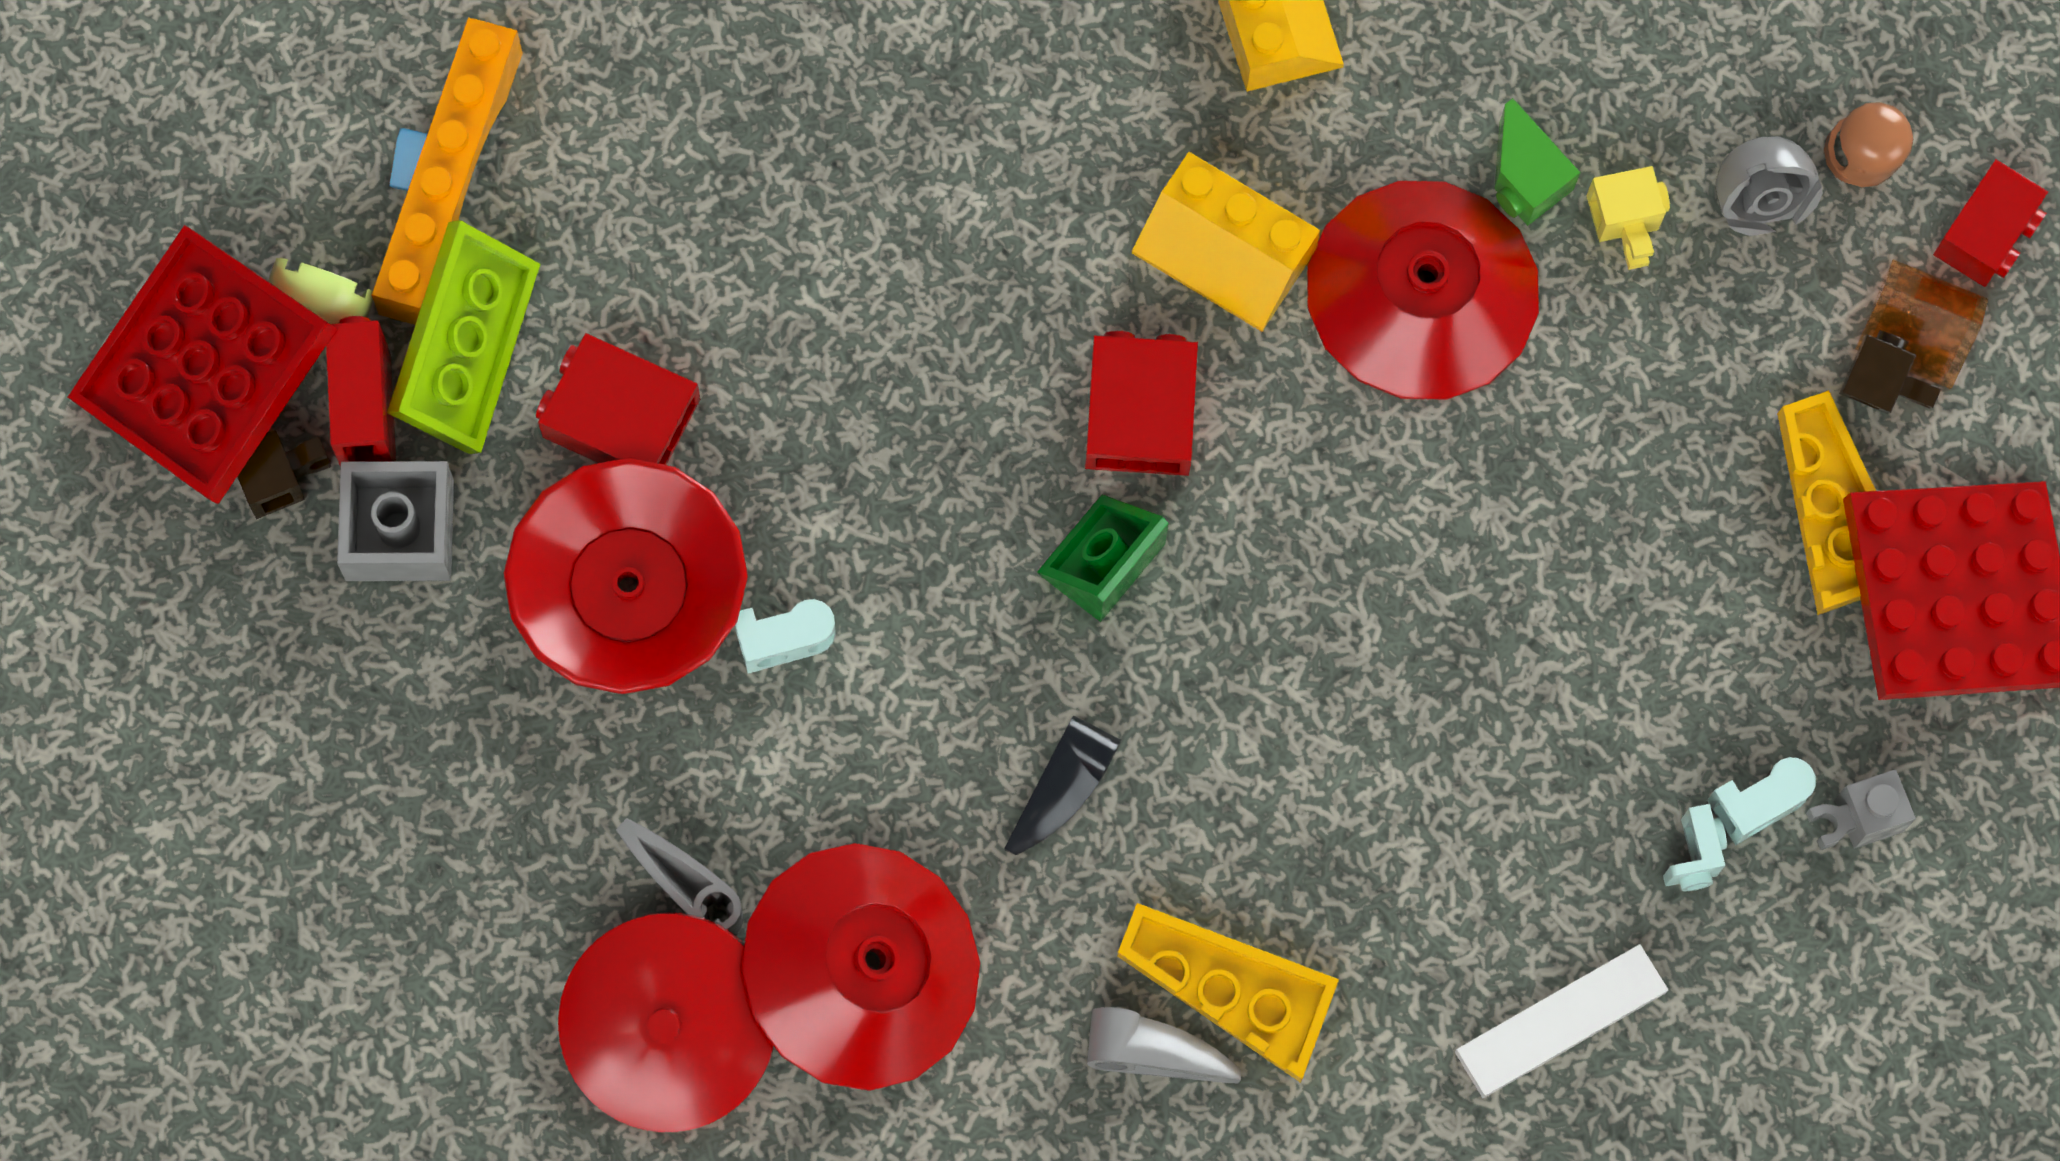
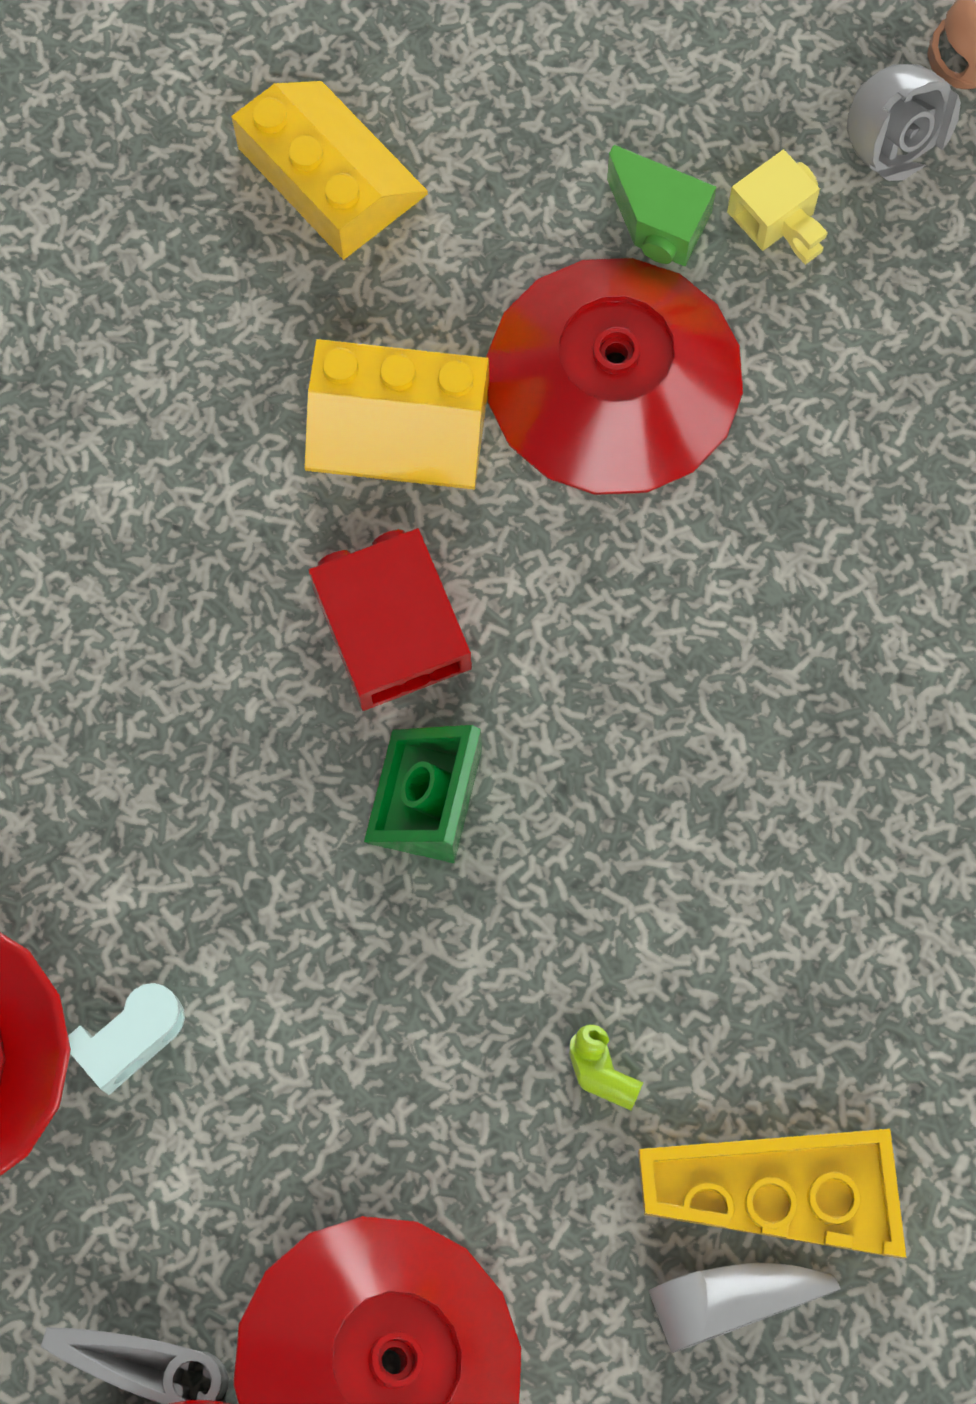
camera: 20 degrees left, 0 degrees up
(1065, 783) = (501, 1055): black piece -> none
(1133, 830) = (595, 1068): none -> lime arm

